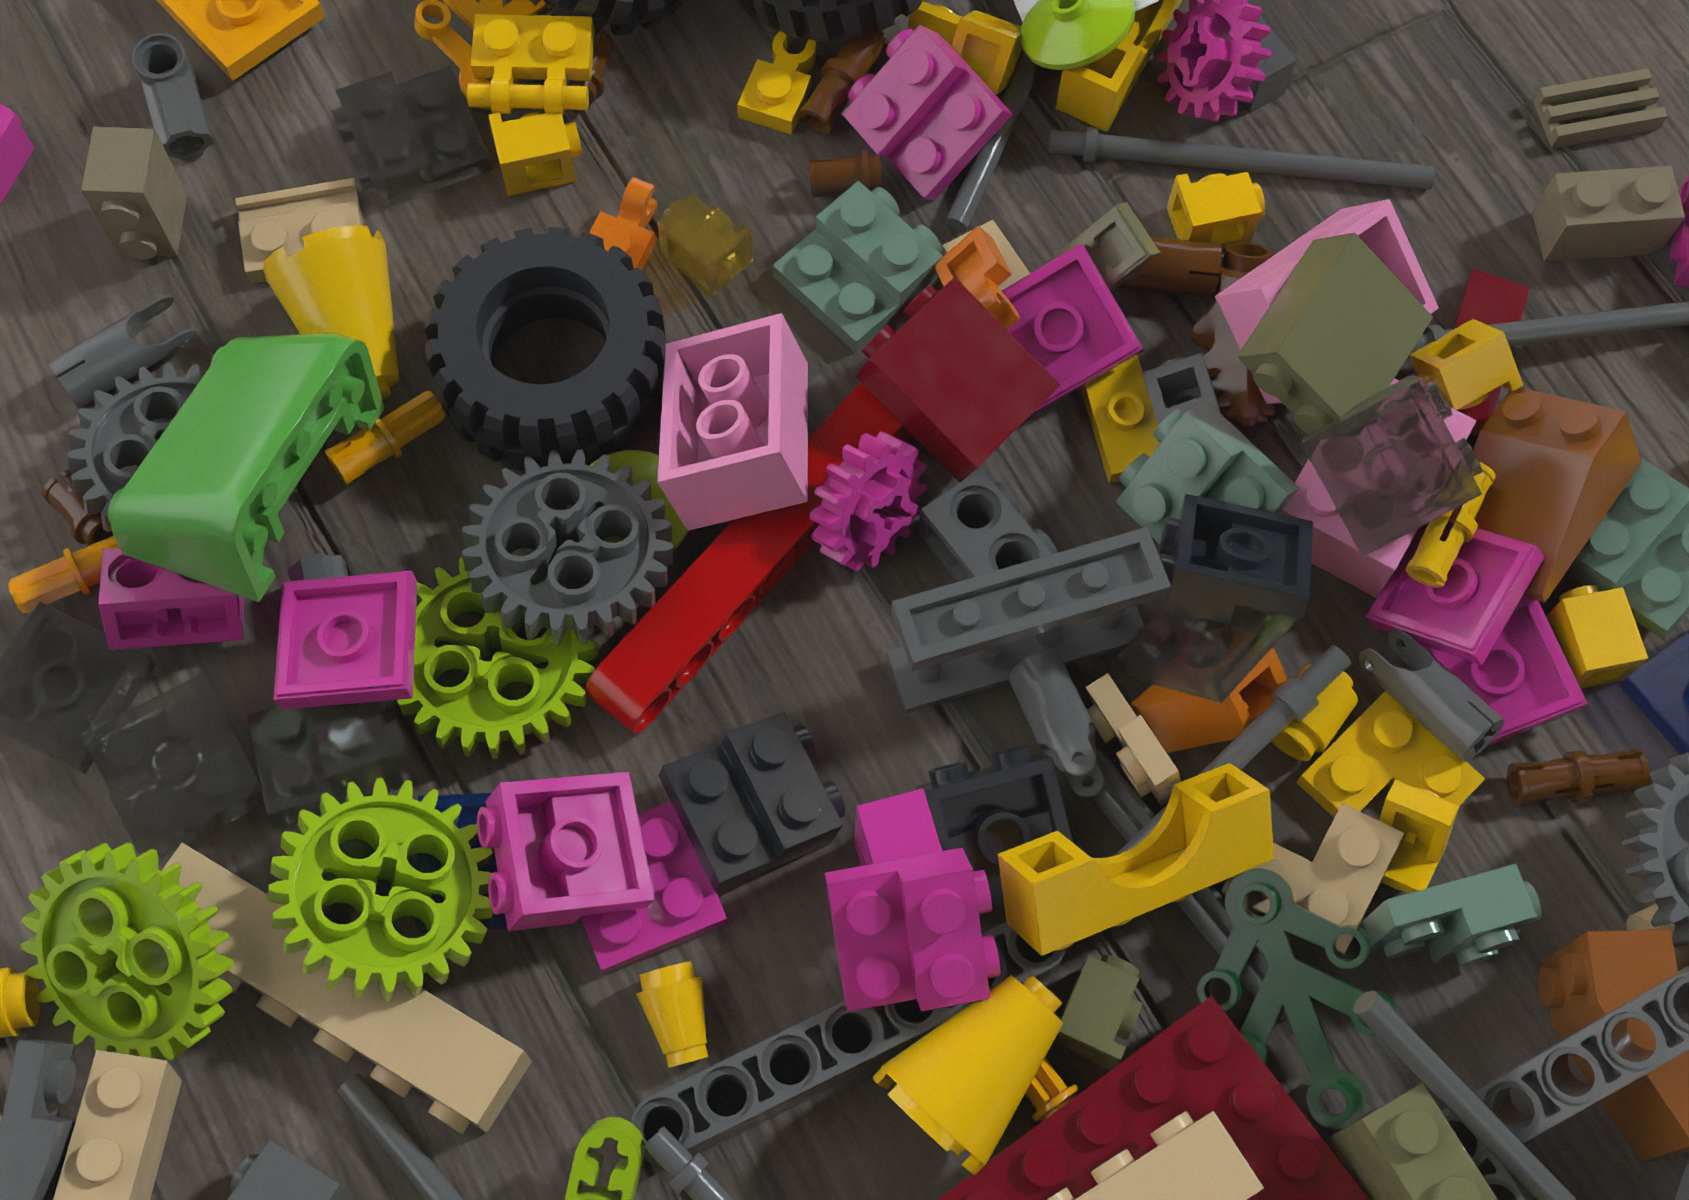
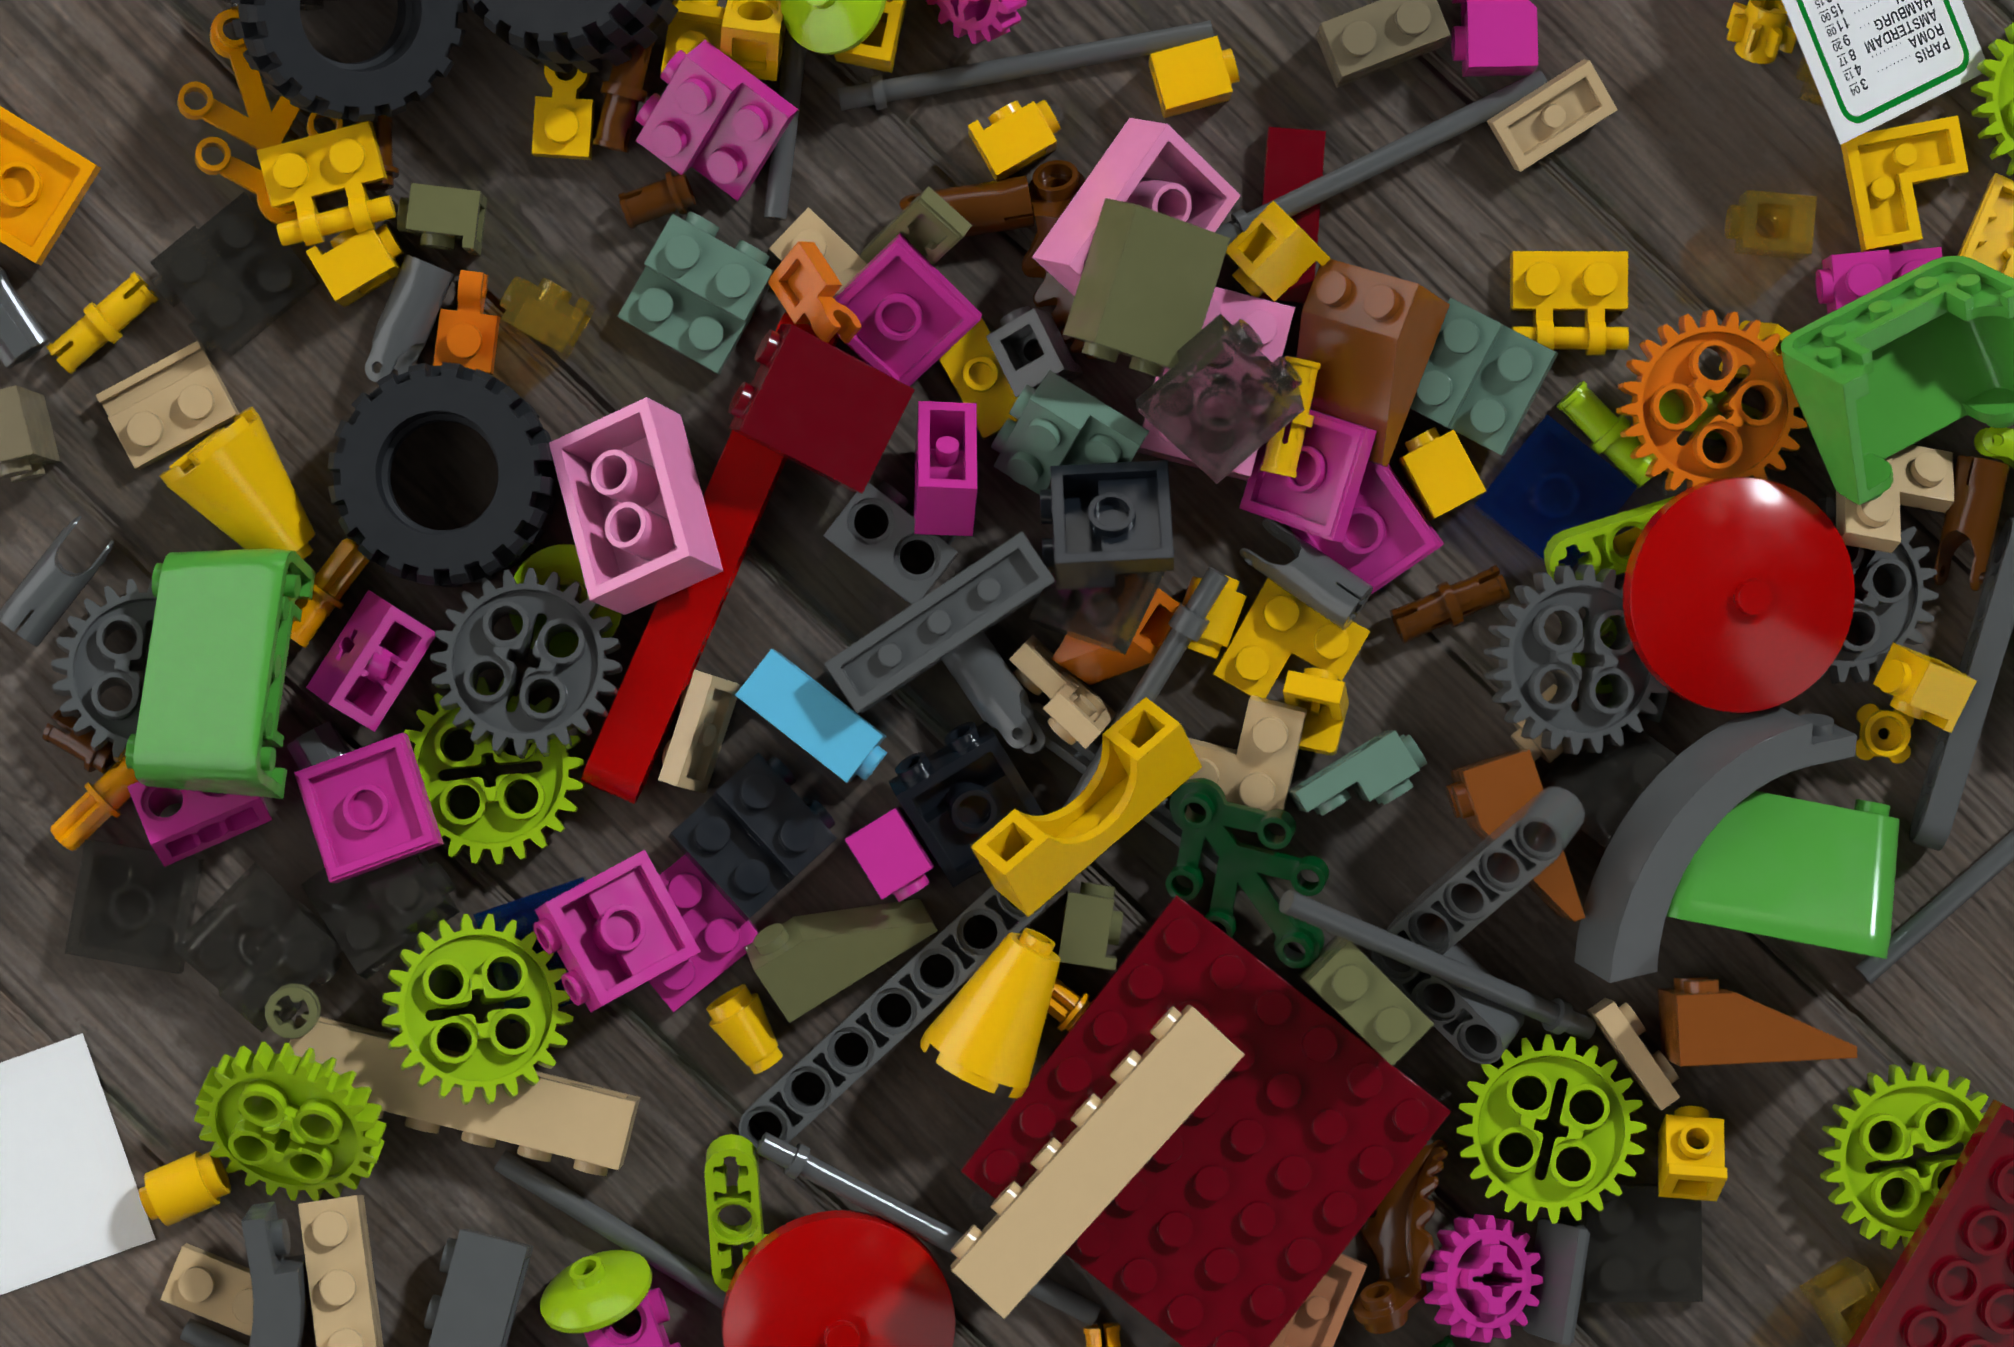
camera: 15 degrees left, 20 degrees up
(167, 848) = (288, 1028): none -> olive bush
(269, 141) = (102, 323): none -> yellow pin
(408, 504) = (371, 661): none -> dark pink brick
(575, 198) = (407, 317): none -> dark grey piece
(634, 132) = (444, 216): none -> olive brick
(727, 676) = (699, 732): none -> tan plate
(770, 950) = (830, 950): none -> olive slope
(856, 685) = (813, 717): none -> medium azure window
(868, 500) = (775, 543): dark pink gear -> none
(912, 931) = (919, 928): dark pink plate -> none
(1069, 478) = (945, 468): none -> dark pink brick
(1417, 194) = (1193, 76): none -> yellow brick

